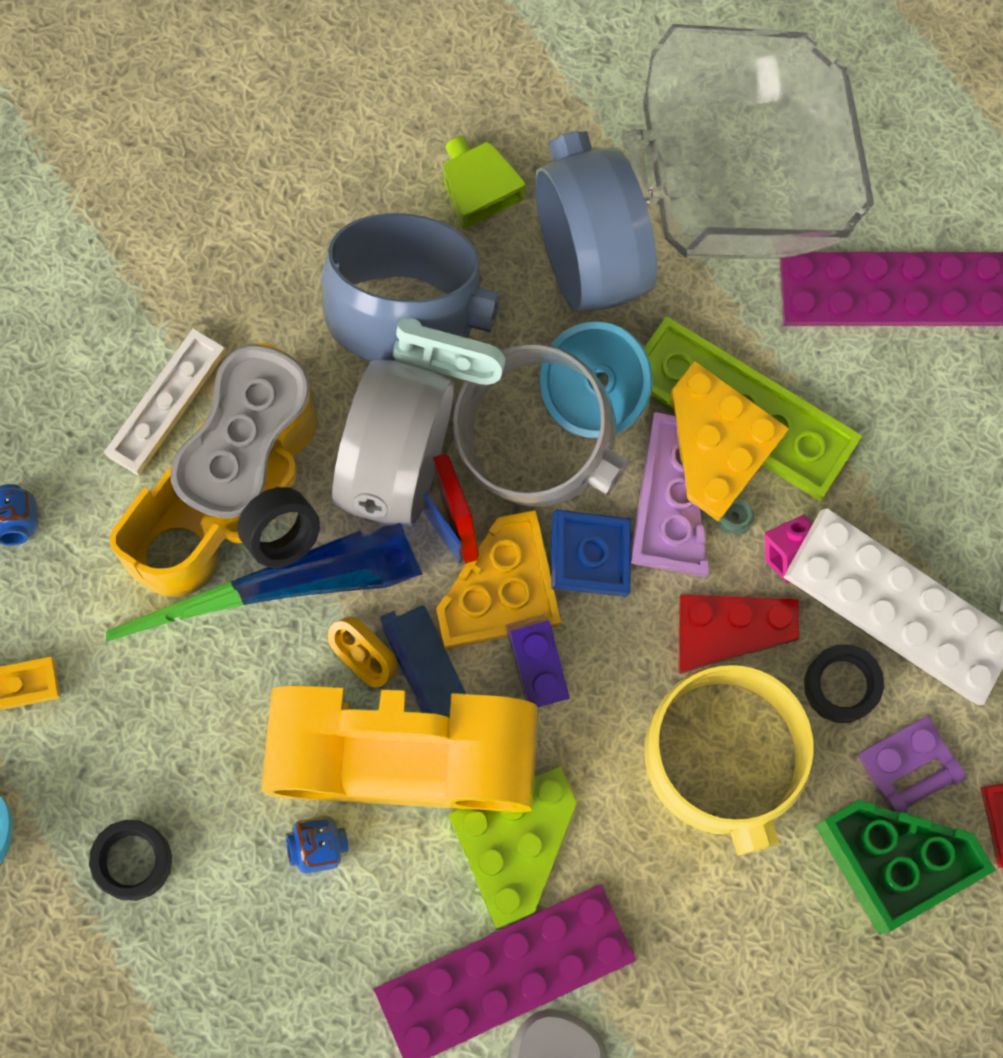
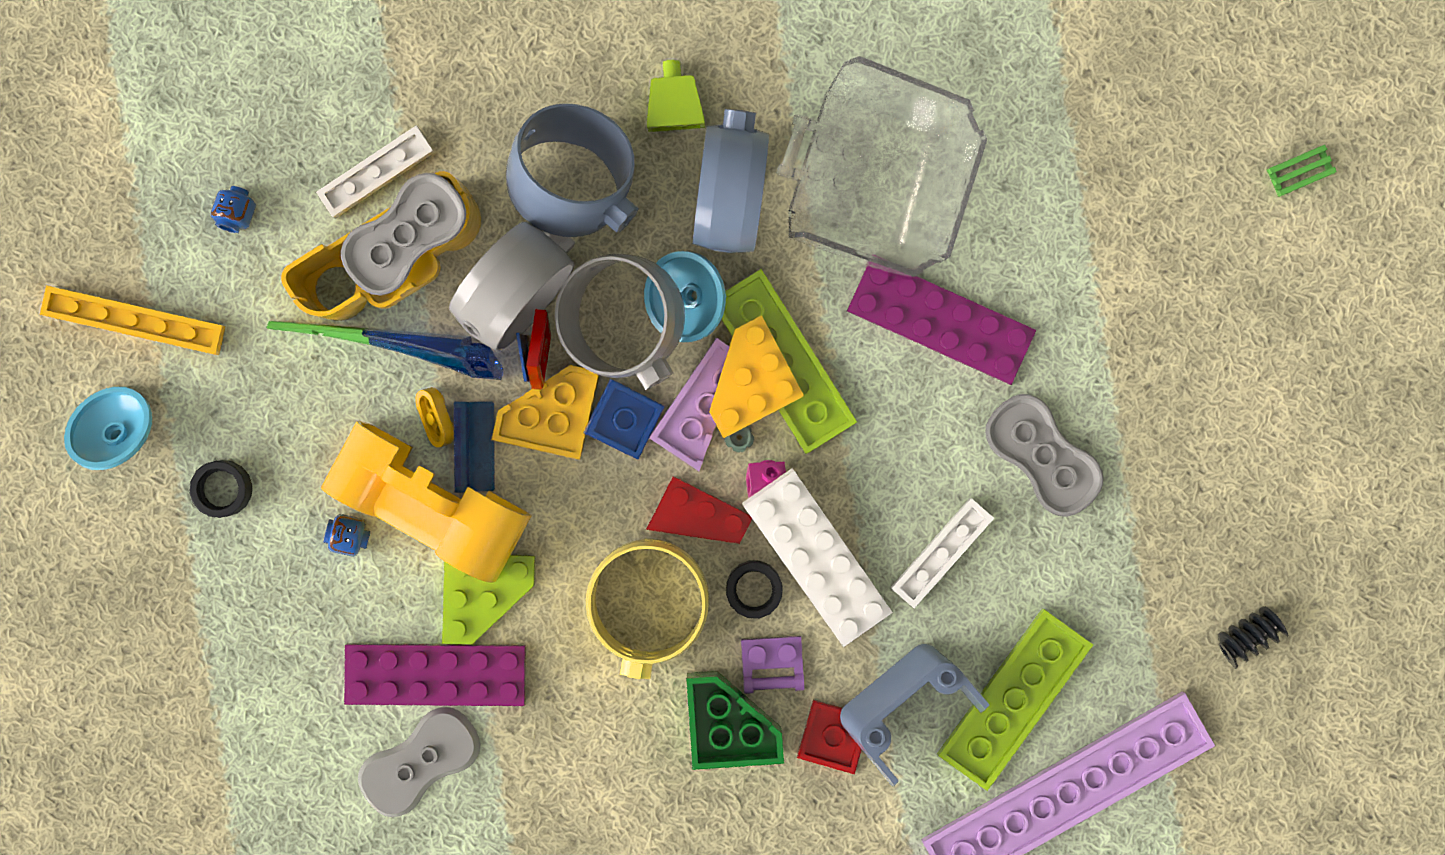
camera: 30 degrees right, 15 degrees up
(266, 508) = (404, 299): black tyre -> none
(447, 353) = (572, 244): light aqua plate -> none
(537, 661) = (547, 481): dark purple brick -> none

